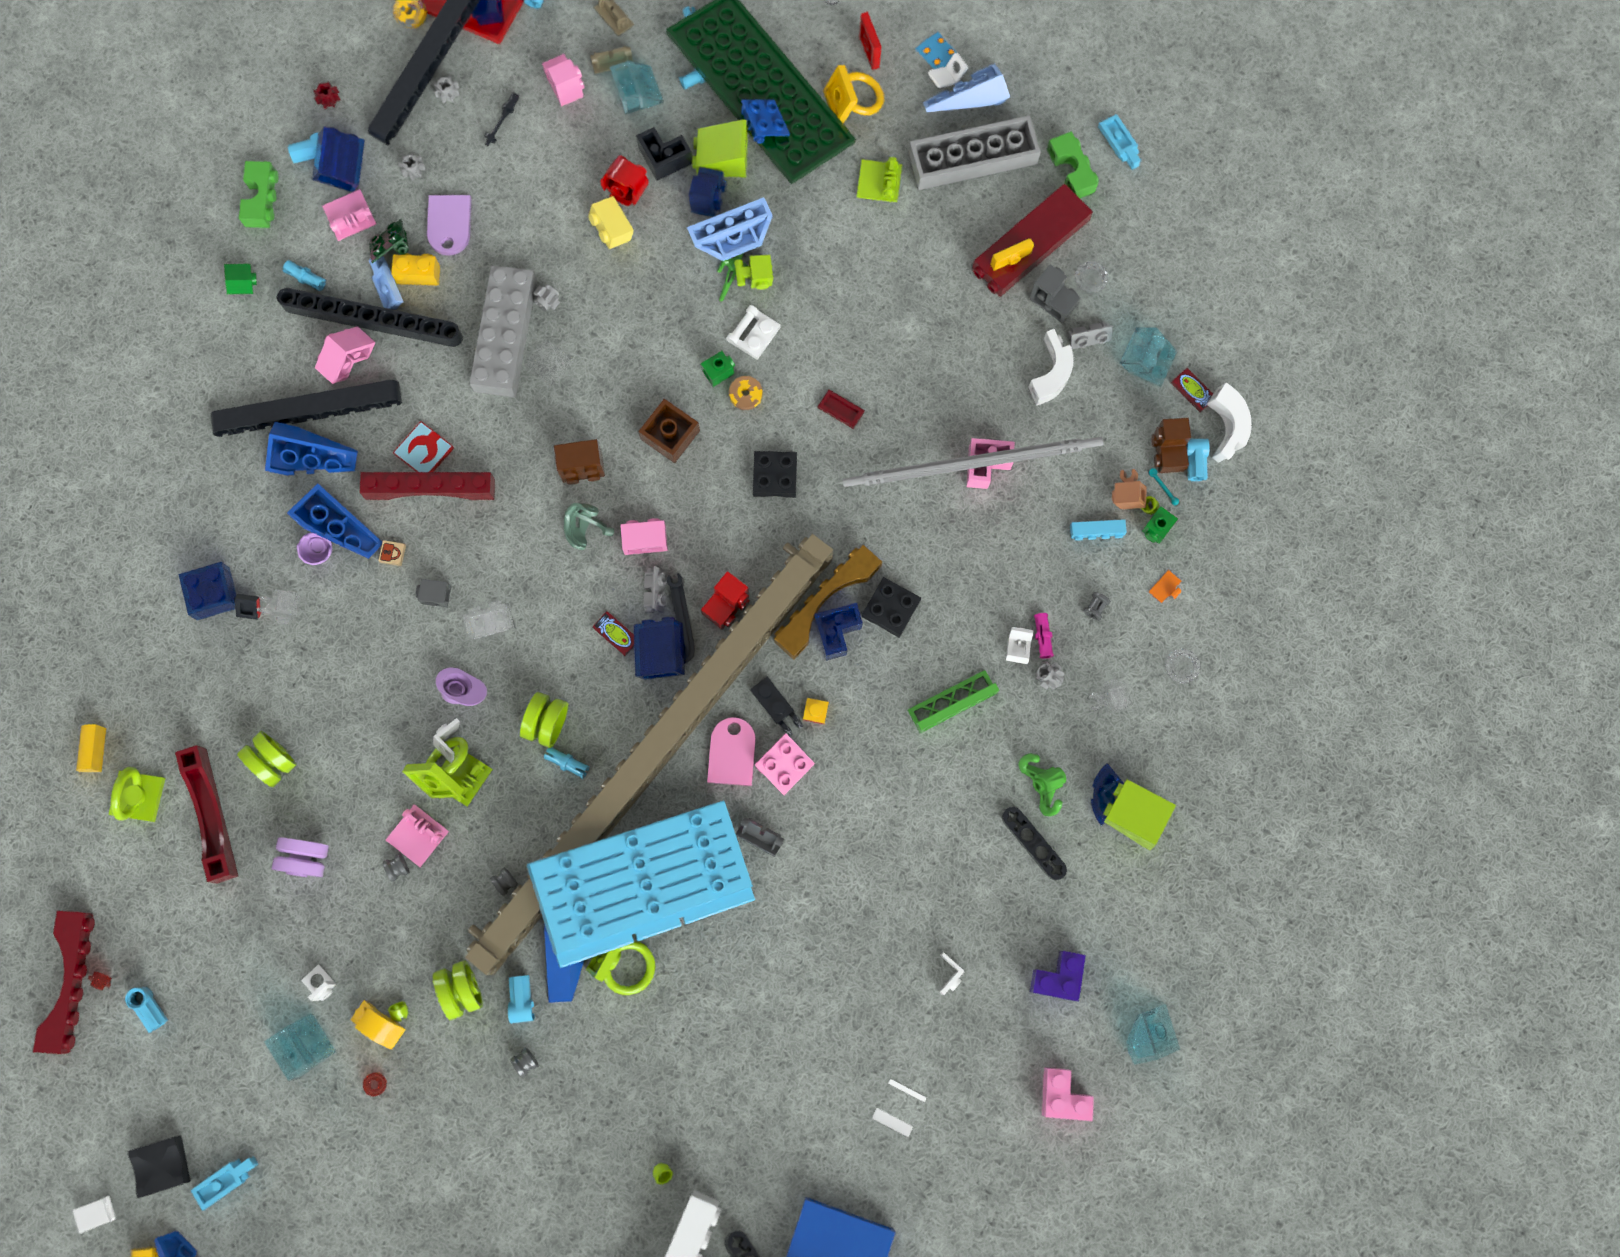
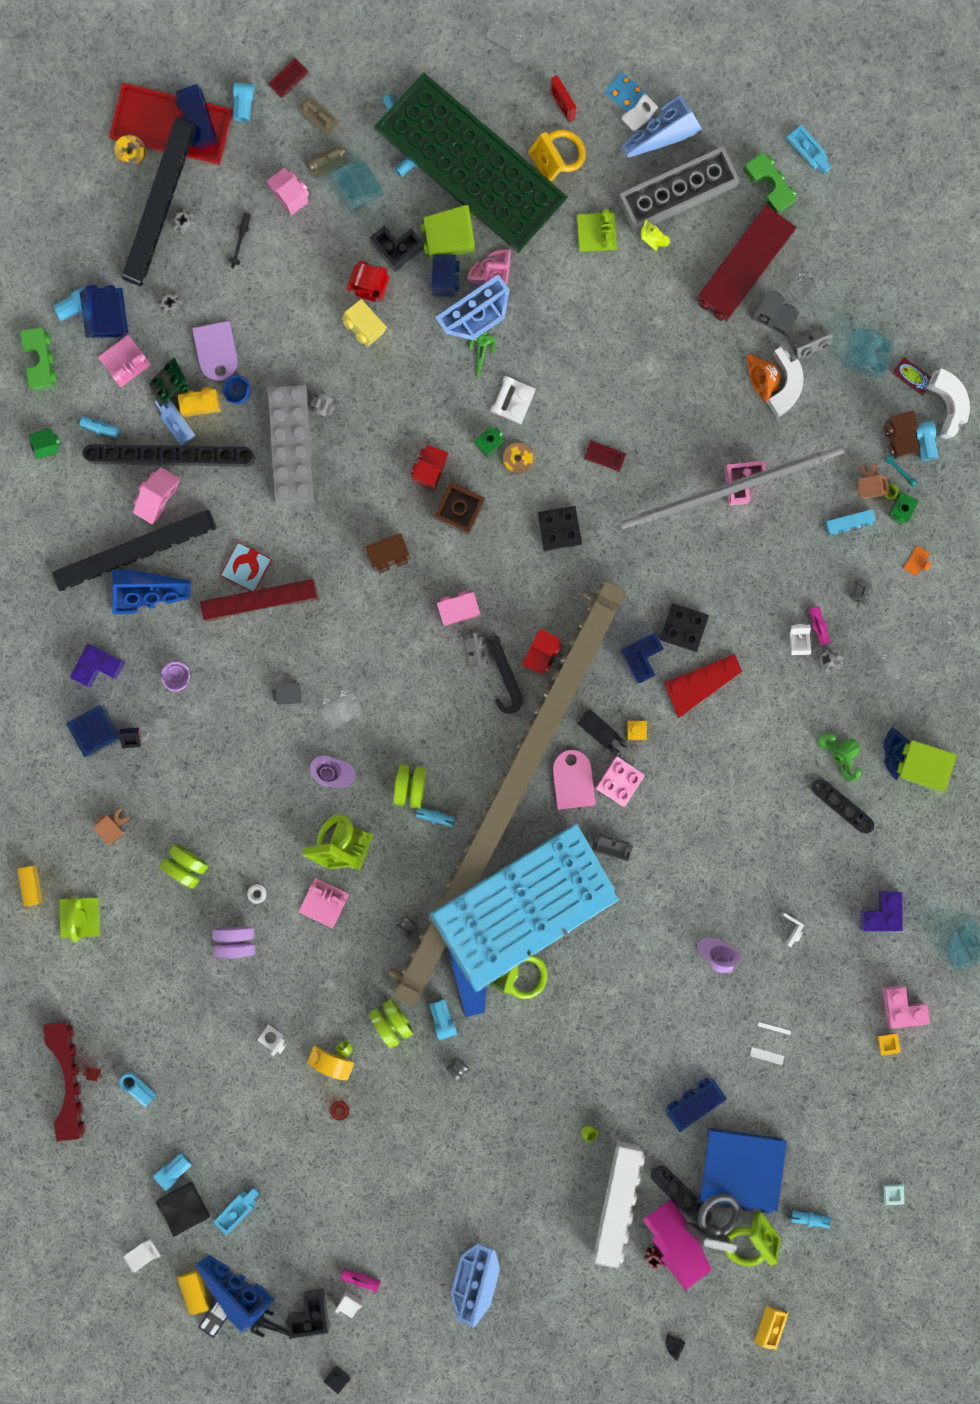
camera: 10 degrees left, 10 degrees up
(156, 1119) = (168, 1174): none -> medium azure piece
(198, 701) = (110, 828): none -> nougat brick
(200, 782) = (138, 907): dark red arch -> none
(227, 517) = (92, 662): none -> dark purple brick
(300, 1047) = (272, 1093): clear light blue slope -> none
(326, 95) = (76, 255): dark red gear -> none
(329, 519) = (181, 648): blue wedge -> none
(337, 807) = (250, 893): none -> white plate
(392, 553) = (242, 665): tile -> none
(396, 867) = (313, 933): dark grey wheel -> none
(443, 733) = (325, 823): white bracket -> none
(463, 260) = (238, 384): none -> blue hair
(576, 535) = (397, 617): sand green helmet -> none
(615, 633) = (451, 697): tile -> none
(646, 382) = (429, 467): none -> red brick
(659, 648) = (493, 704): clear blue brick -> none
(758, 270) = (506, 342): lime brick -> none
(763, 119) = (483, 198): blue hinge -> none
(770, 193) = (491, 267): none -> bright pink brick
(795, 1163) = (695, 1104): none -> clear blue brick
(856, 570) = (608, 667): pearl gold arch -> none
(859, 987) = (719, 954): none -> lavender piece
(892, 674) = (697, 685): none -> red wing
(938, 192) = (653, 236): none -> neon yellow hinge
(956, 708) = (752, 708): bright green fence -> none
(1012, 254) = (732, 286): yellow plate -> none
(1029, 357) = (763, 376): none -> orange hat
(1039, 1137) = (888, 1044): none -> yellow plate

